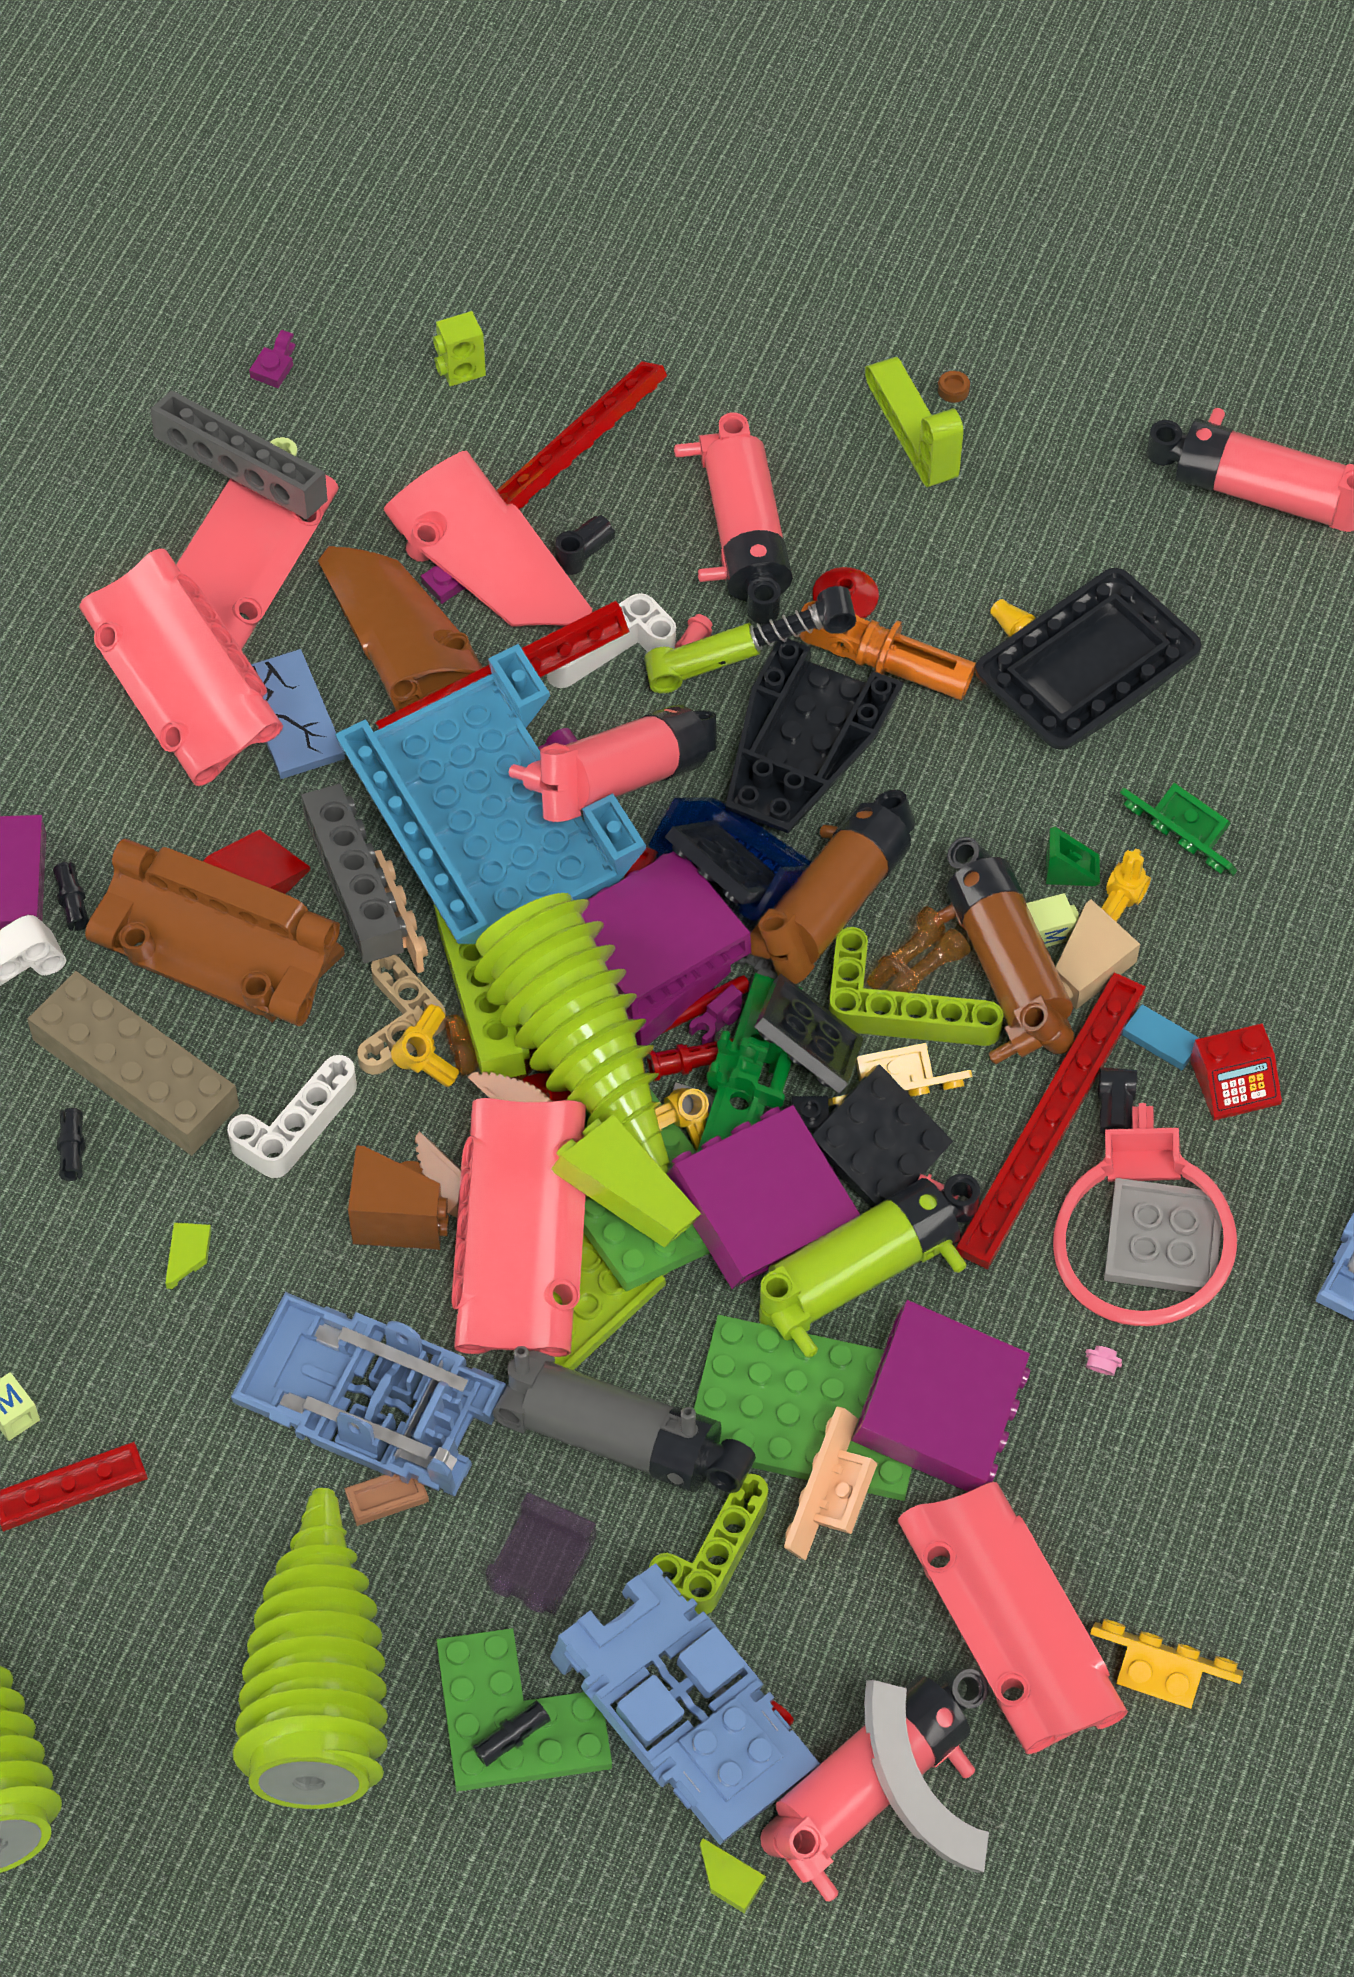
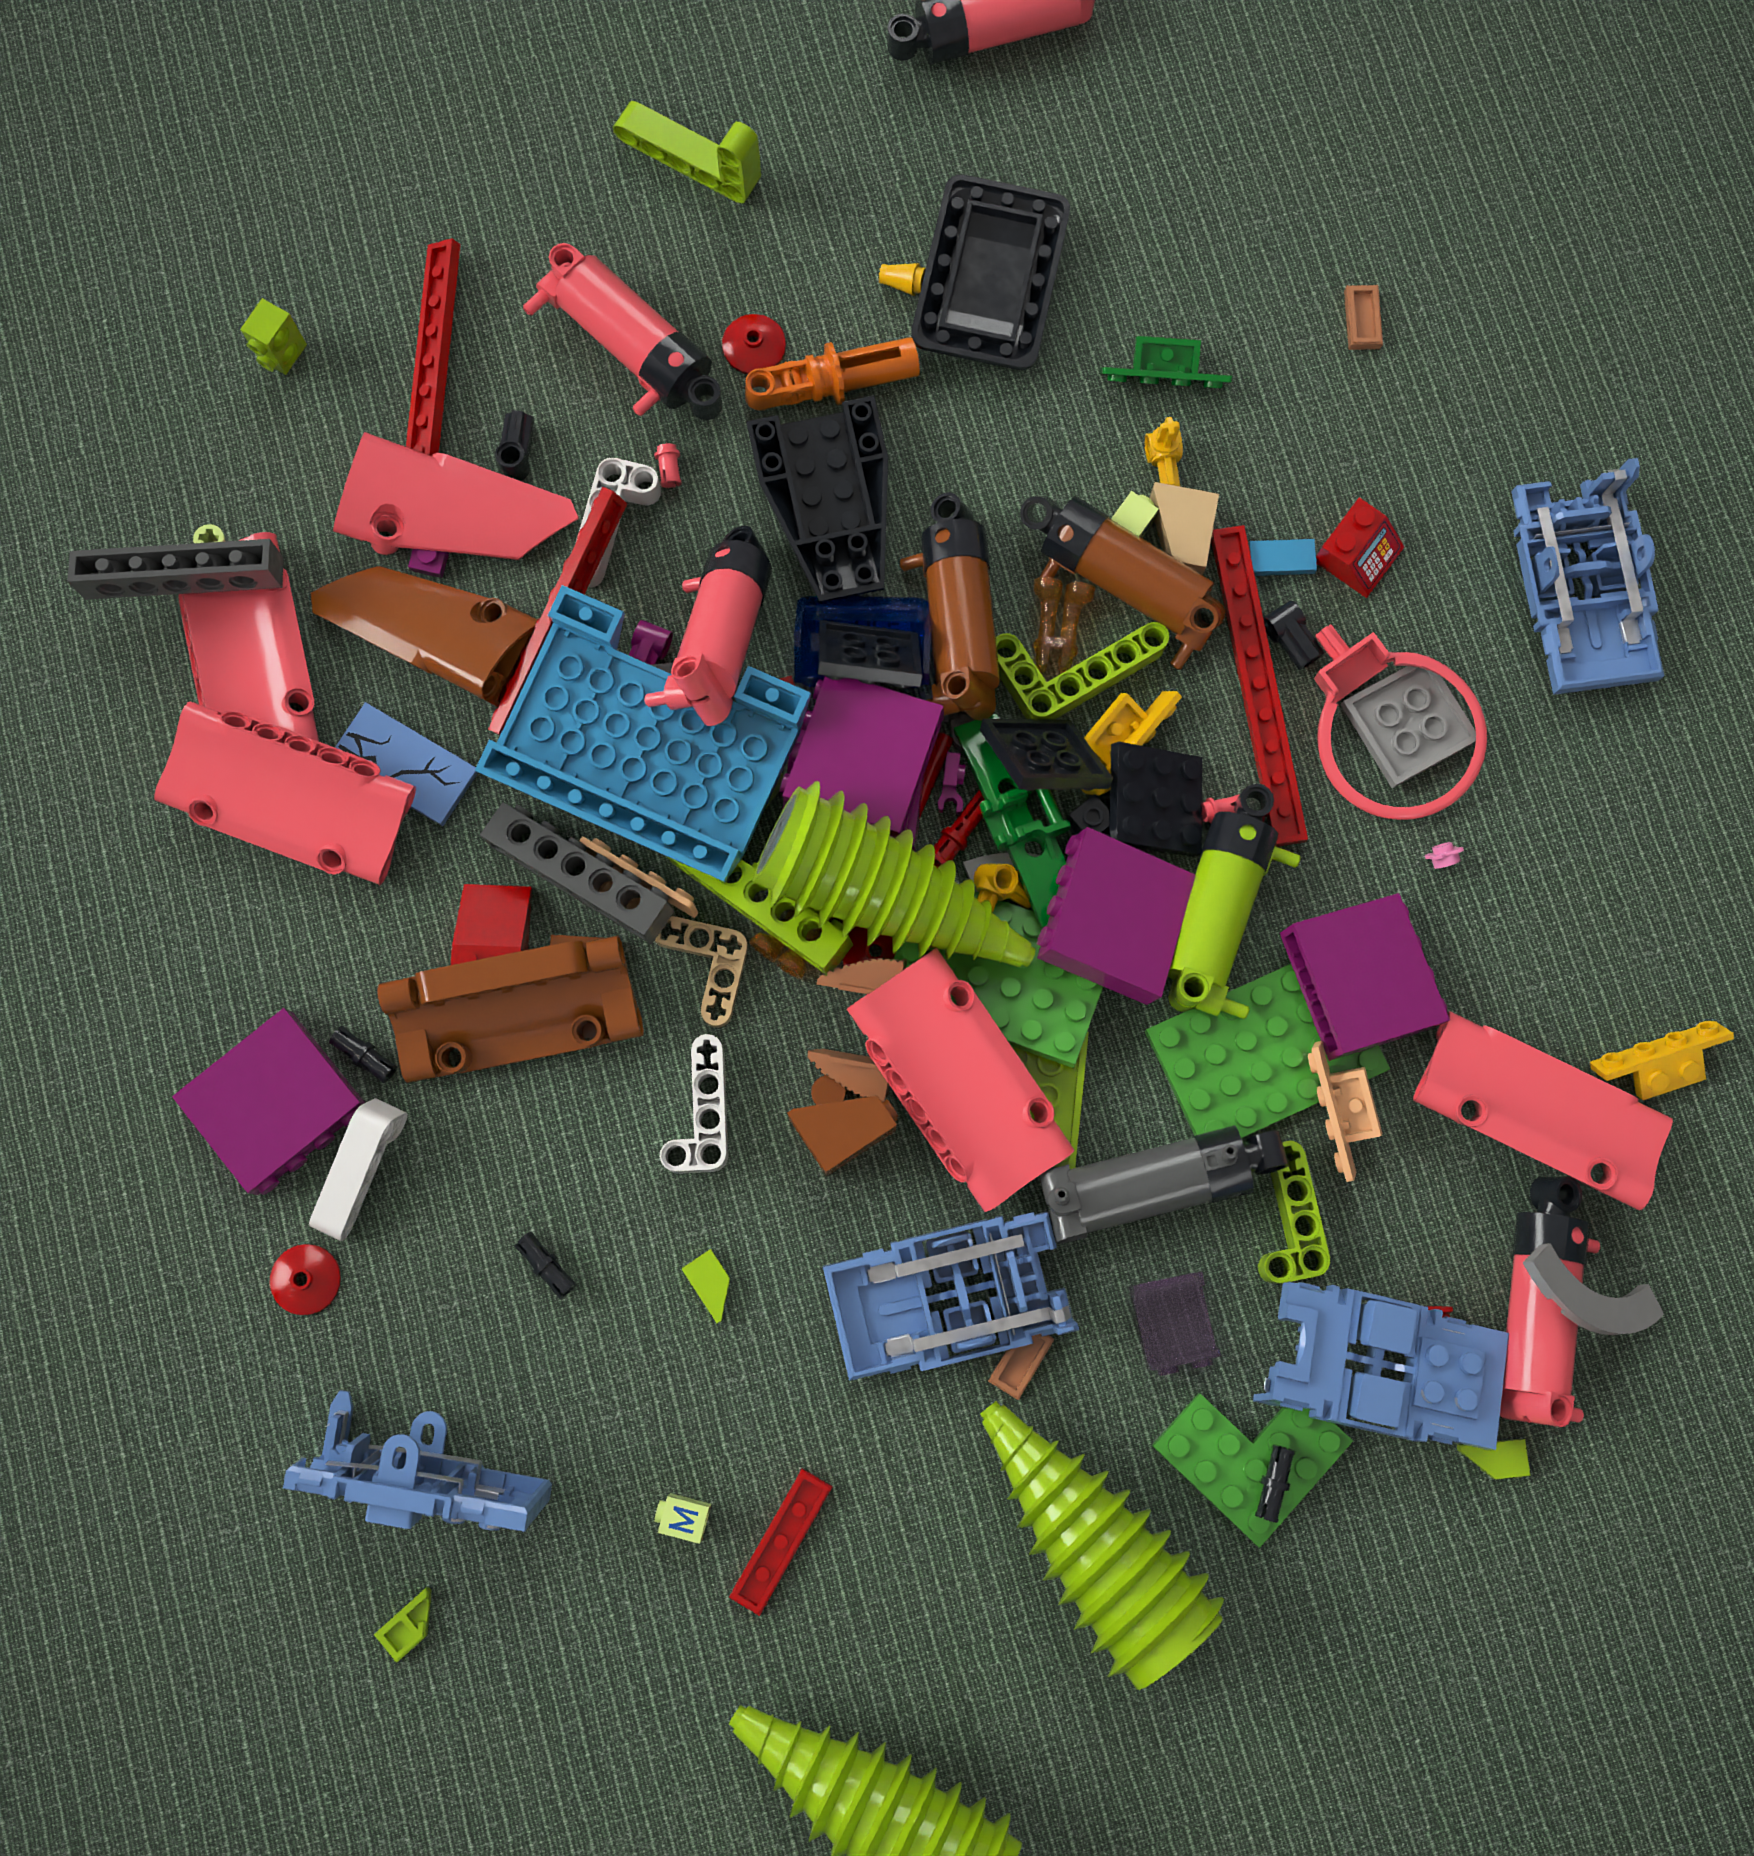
camera: 40 degrees left, 20 degrees up
(133, 1063) = (536, 1161): dark tan brick -> none
(274, 365) = (122, 457): magenta plate -> none
(421, 1038) = (762, 986): yellow axle -> none
(626, 1181) = (1019, 987): lime slope -> none
(671, 666) = (675, 507): piece -> none
(953, 386) = (692, 96): dark orange tile -> none
(1070, 861) = (1106, 459): green slope -> none

